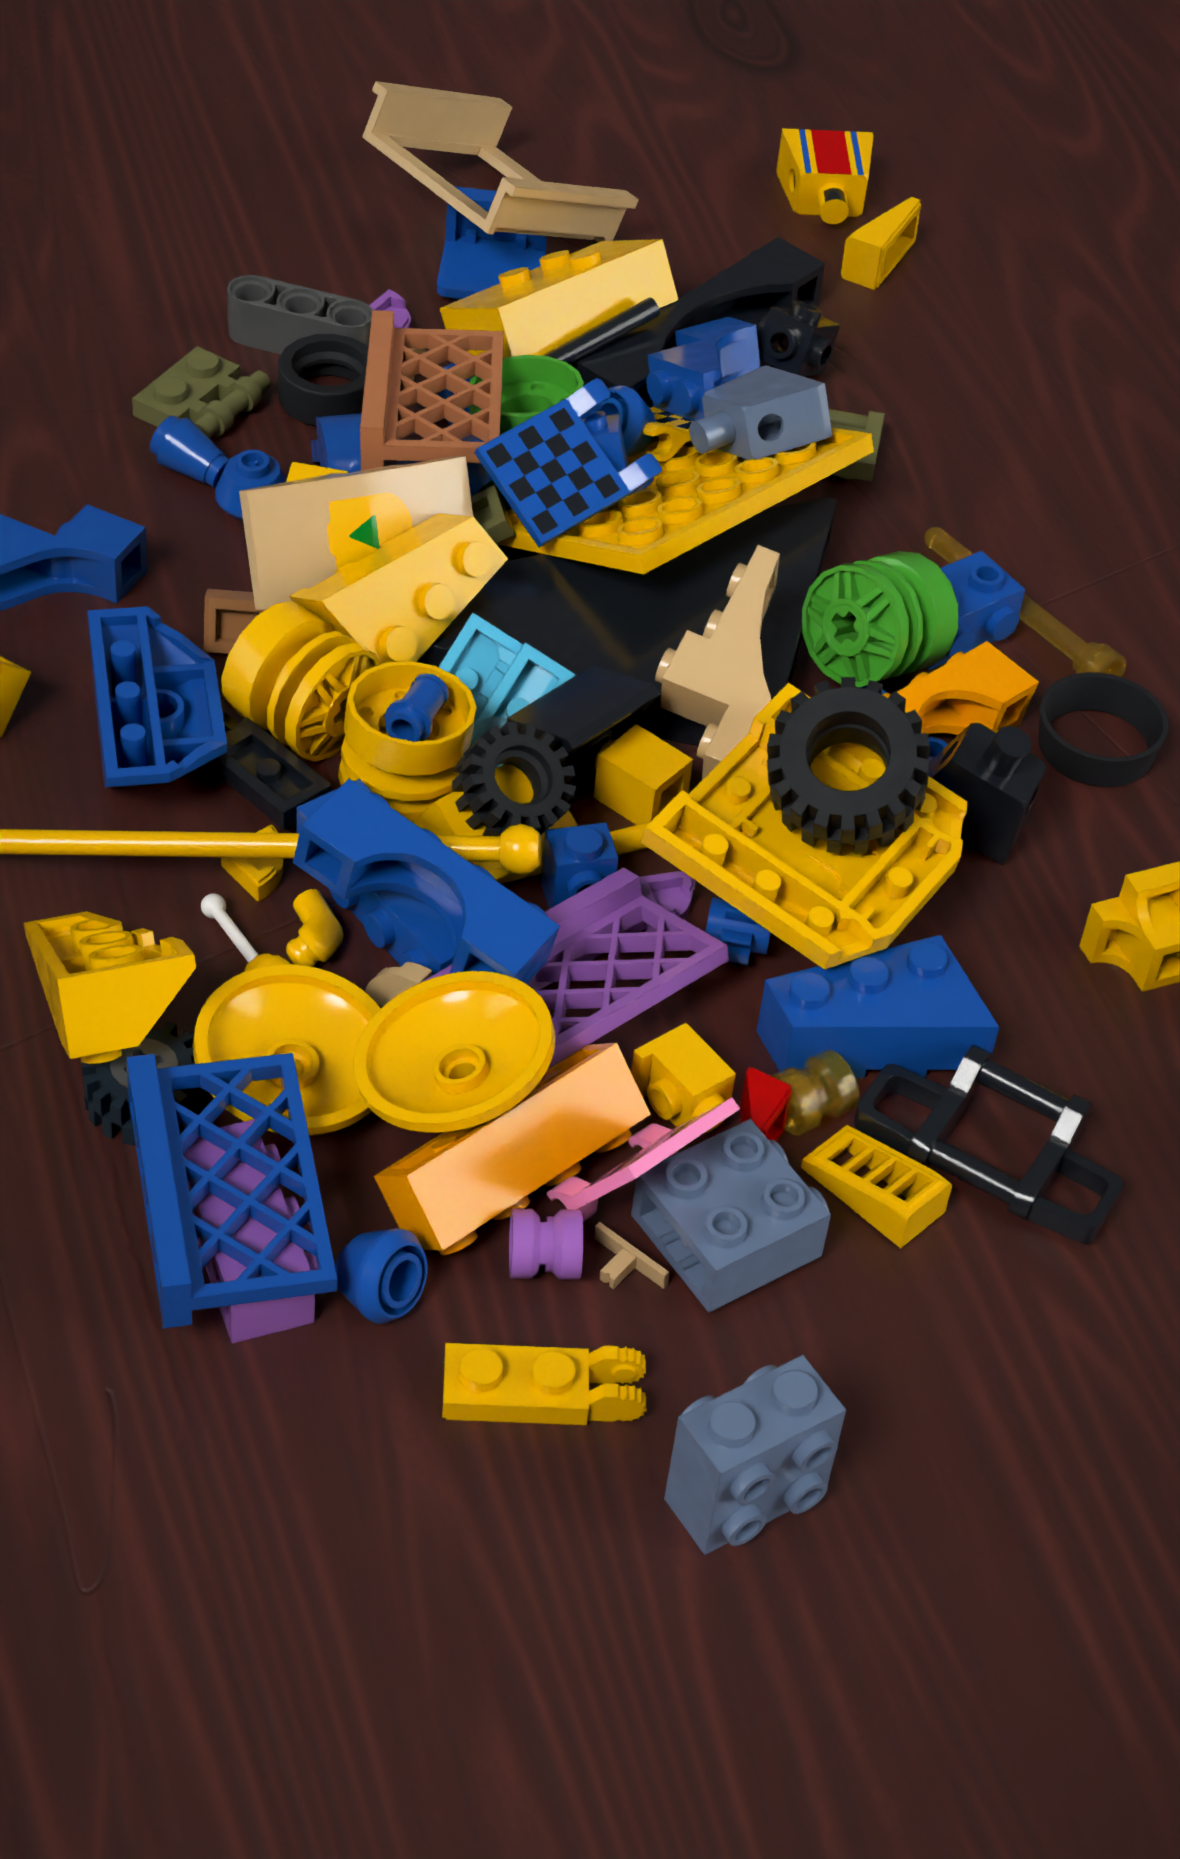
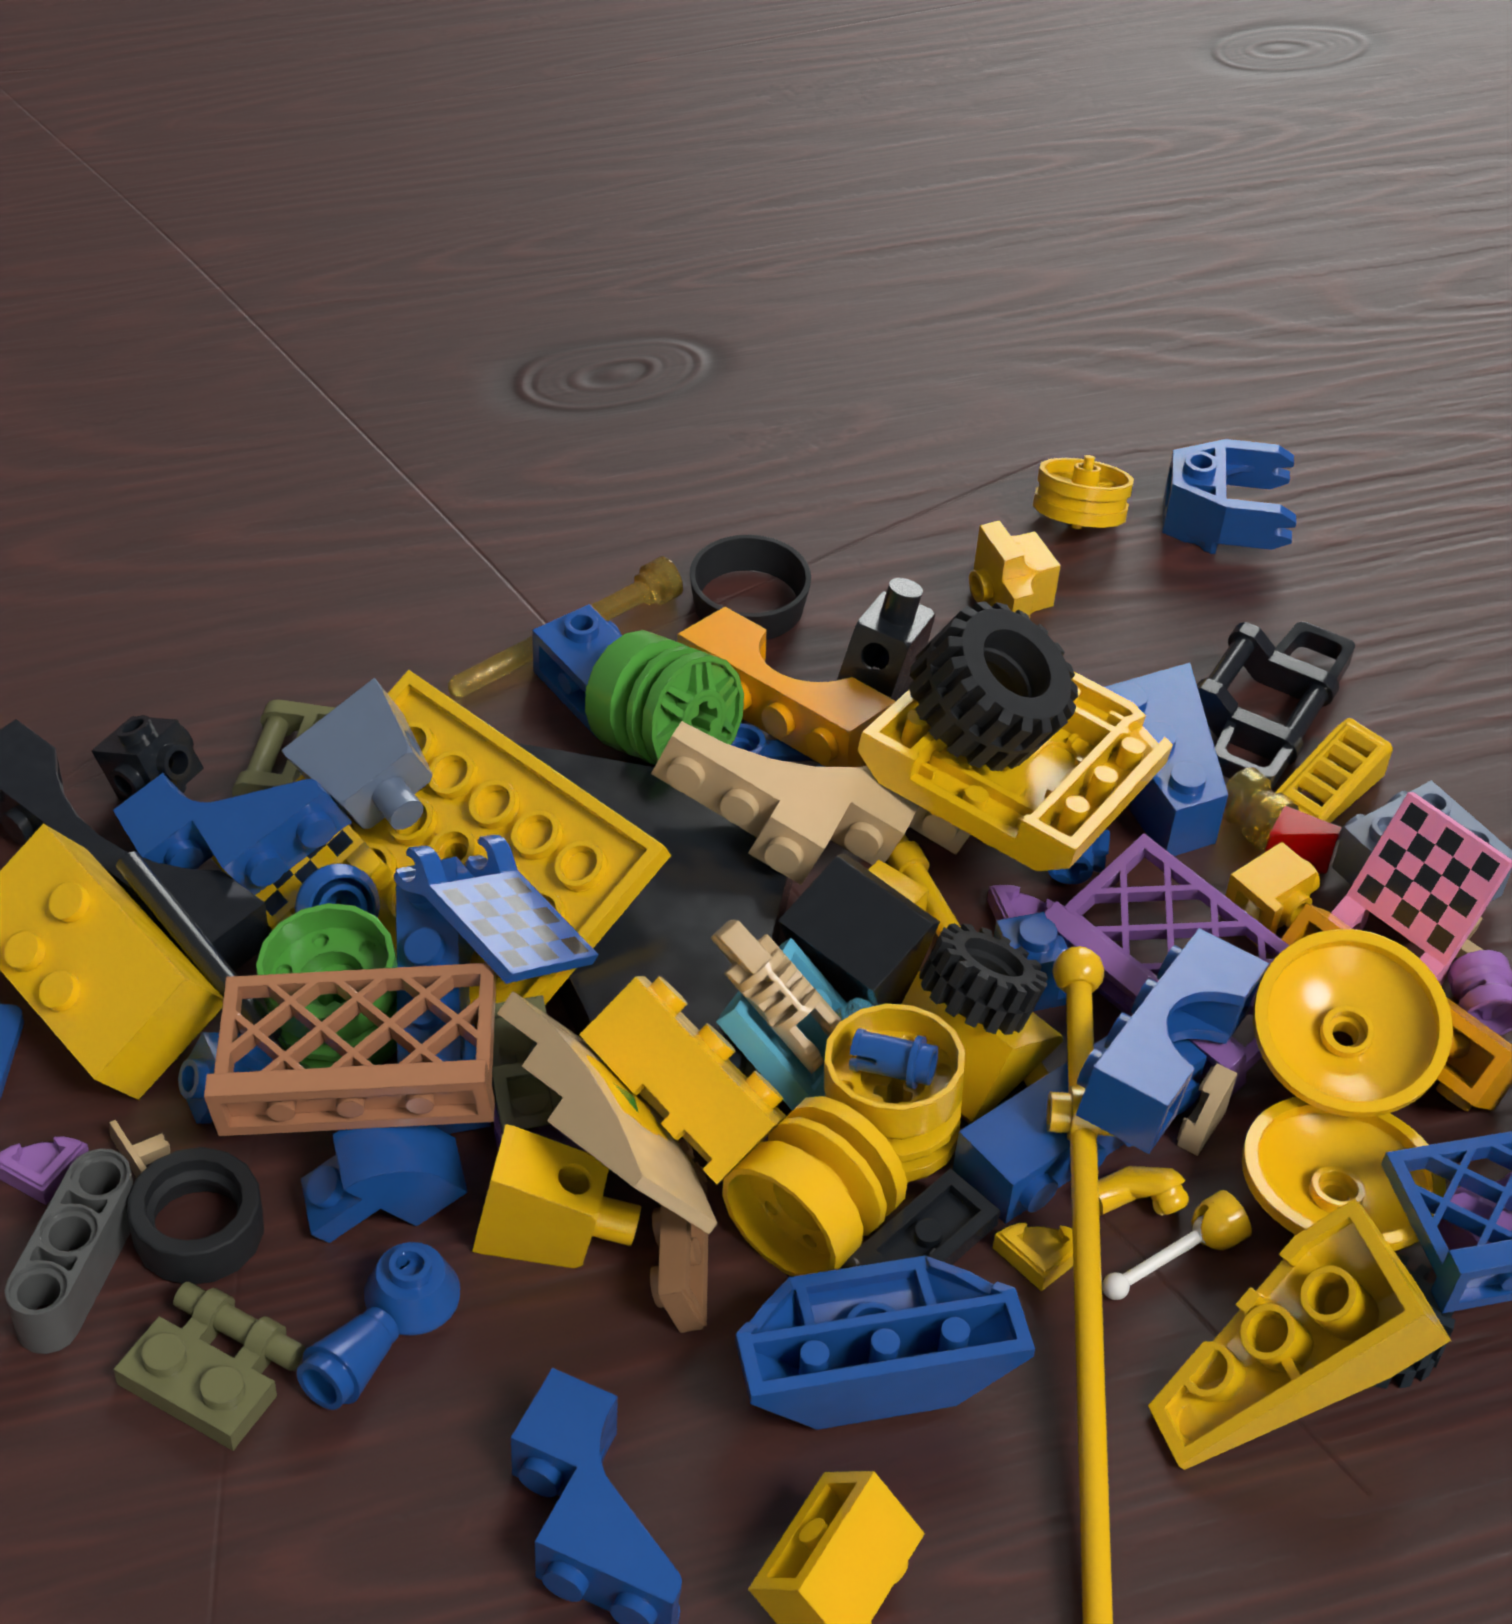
camera: 90 degrees left, 0 degrees up
(498, 634) = (775, 989): none -> tan hinge

